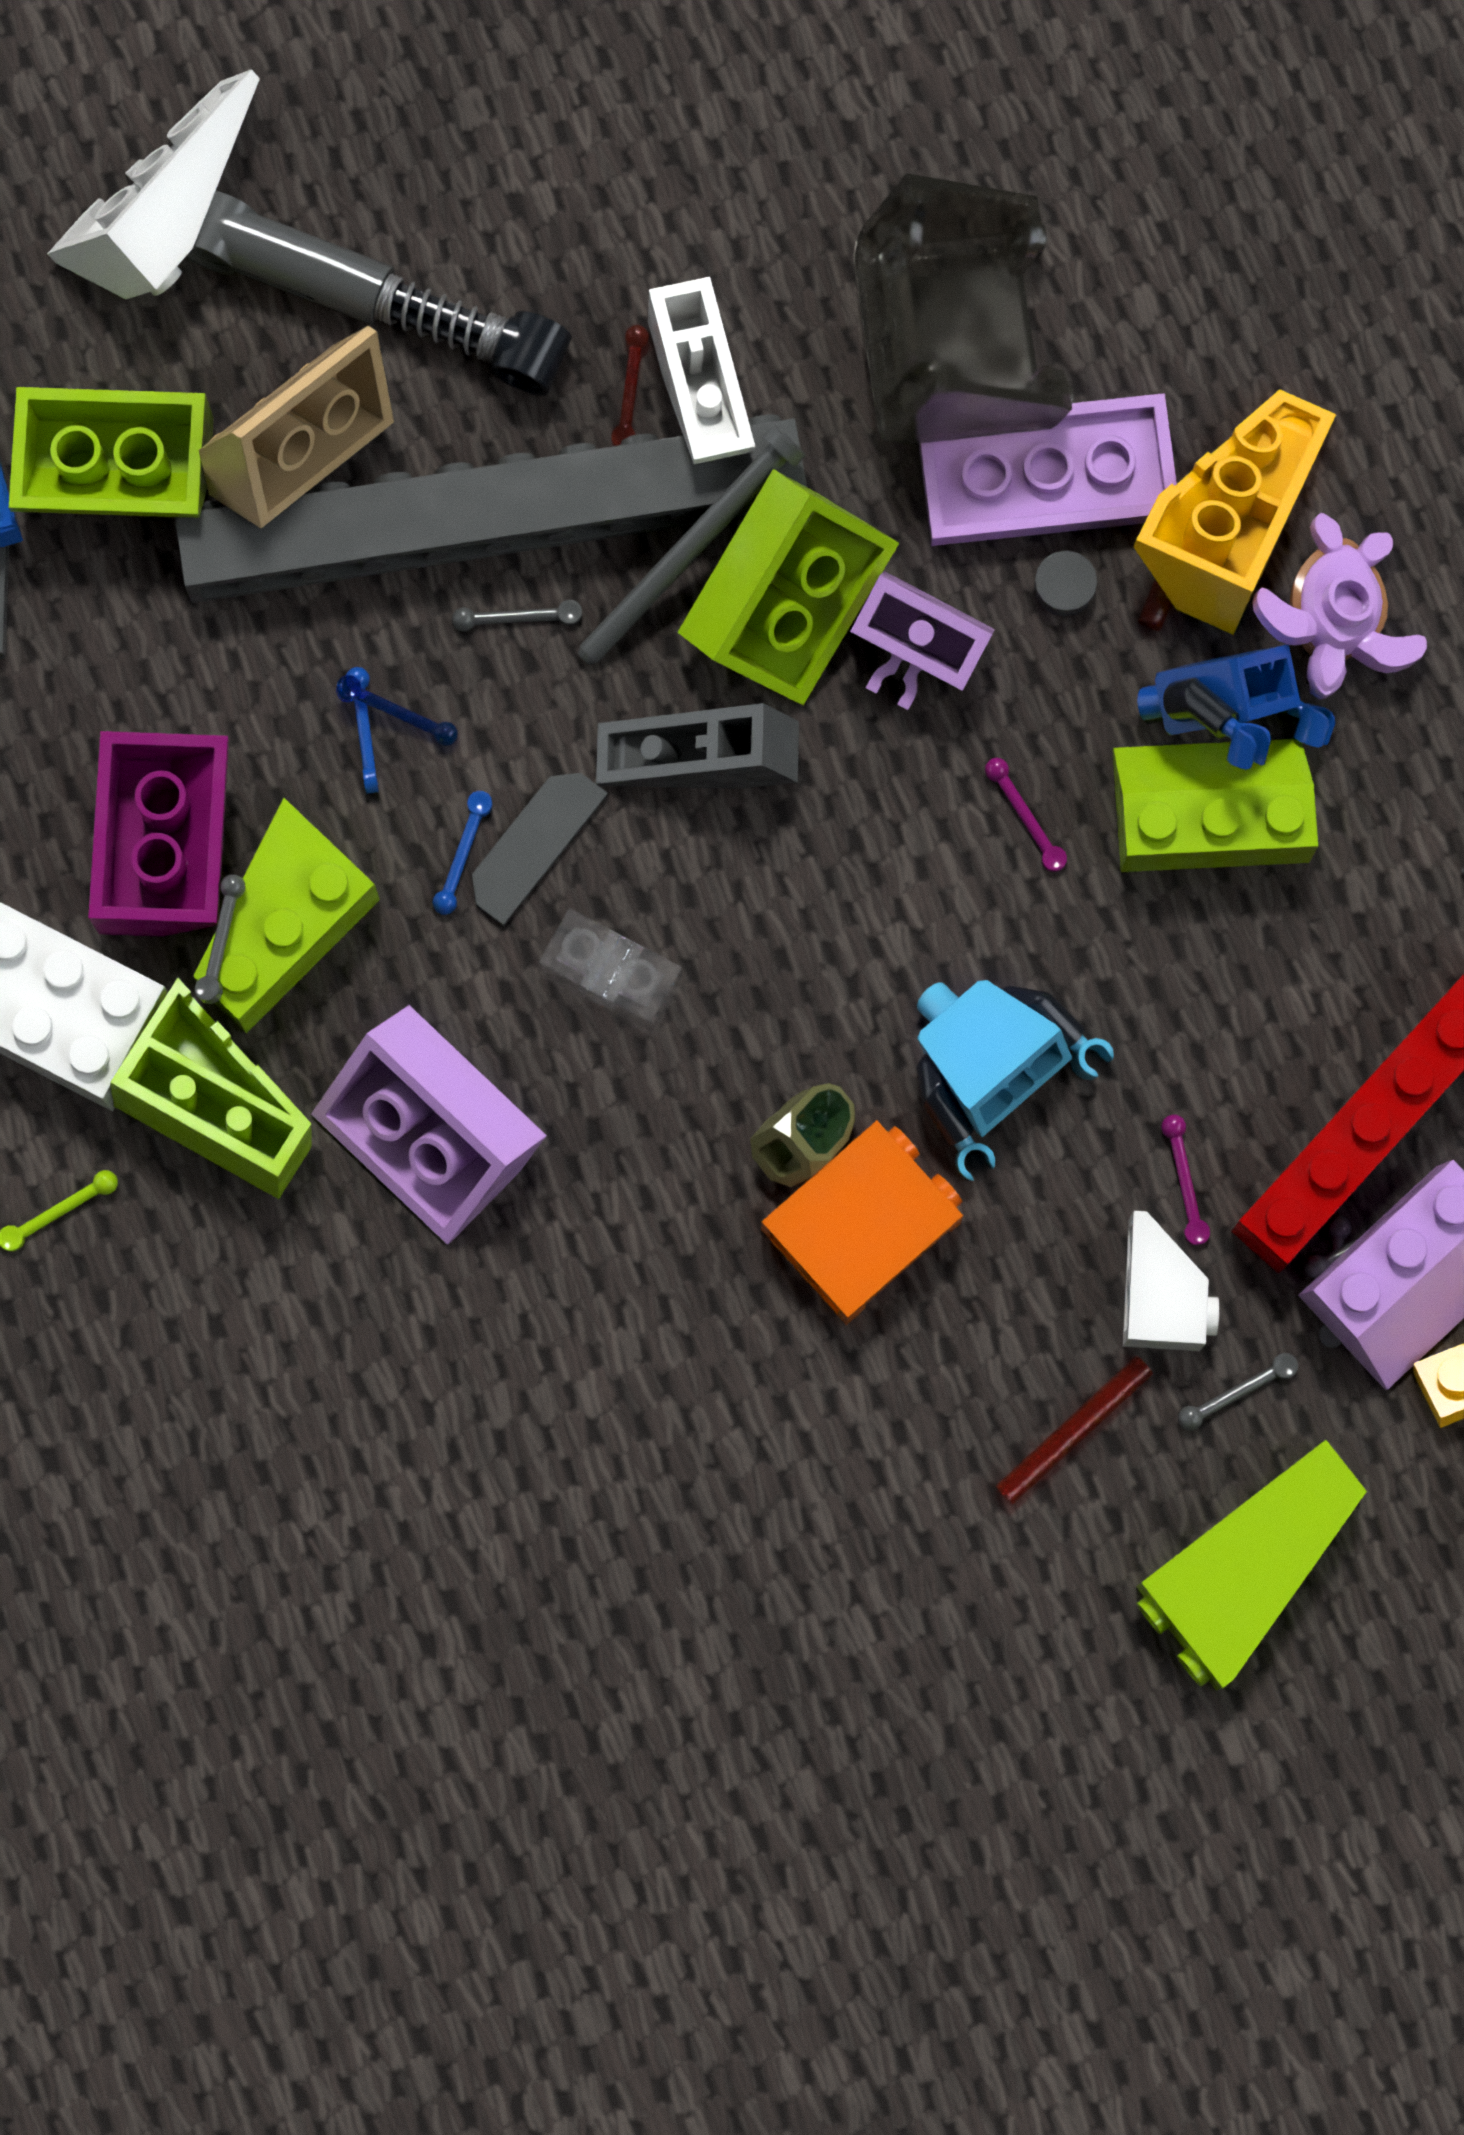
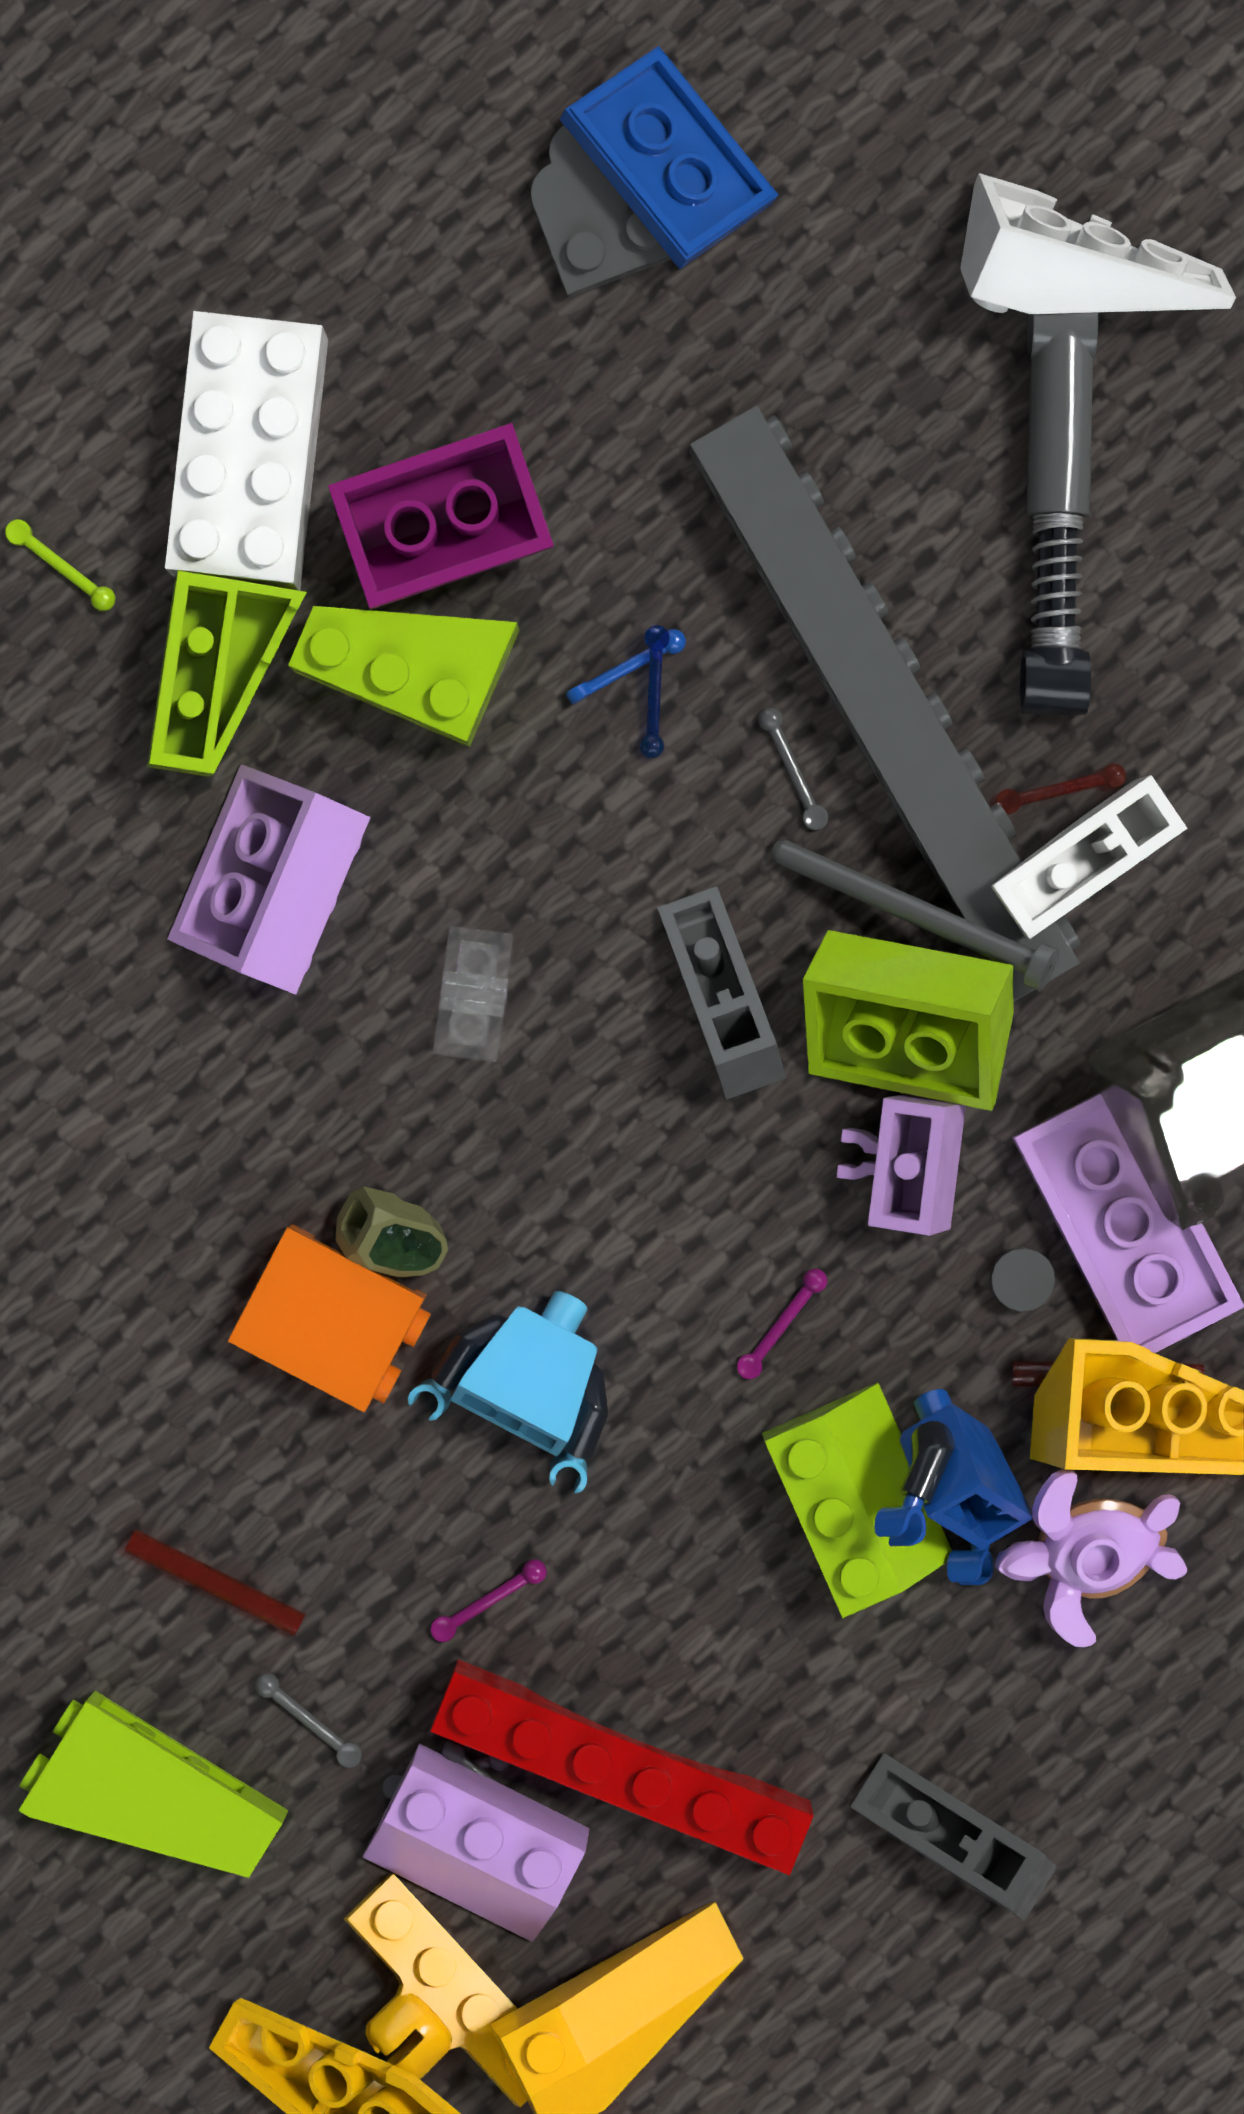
camera: 70 degrees right, 10 degrees up
(109, 452) = (791, 319): lime slope -> none
(208, 987) = (302, 626): dark grey hinge -> none
(300, 430) = (883, 492): tan slope -> none
(479, 805) = (595, 805): blue hinge -> none
(534, 843) = (578, 871): dark grey piece -> none
(1164, 1292) = (367, 1621): white slope -> none

